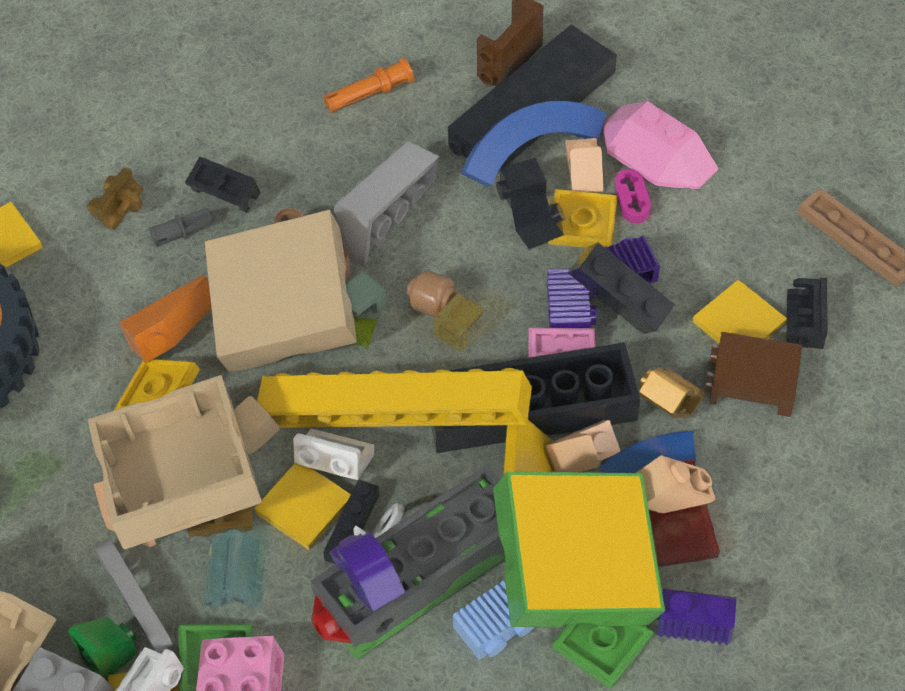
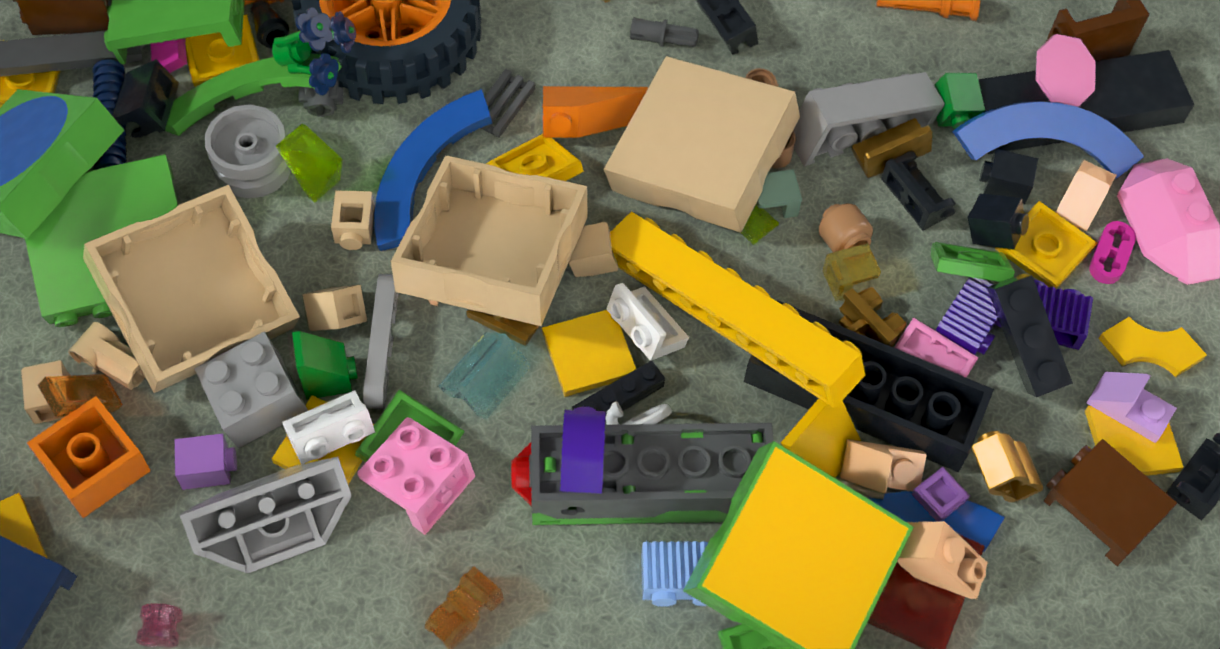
camera: 30 degrees right, 5 degrees up
(38, 518) = (352, 218): none -> tan brick
(52, 442) = (415, 157): none -> blue tile
(75, 596) = (335, 307): none -> tan panel
(89, 334) = (516, 82): none -> dark grey tile
(422, 211) = (892, 143): none -> pearl gold panel
(448, 145) = (961, 98): none -> green brick
(462, 236) = (915, 191): none -> black hinge
(489, 350) = (861, 317): none -> pearl gold hips
(511, 81) = (1065, 70): none -> bright pink piece
(541, 262) = (971, 262): none -> bright green tile
(638, 443) = (940, 494): none -> medium lavender tile
(718, 296) = (1127, 402): none -> lavender slope
(719, 242) = (1135, 343): none -> yellow tile

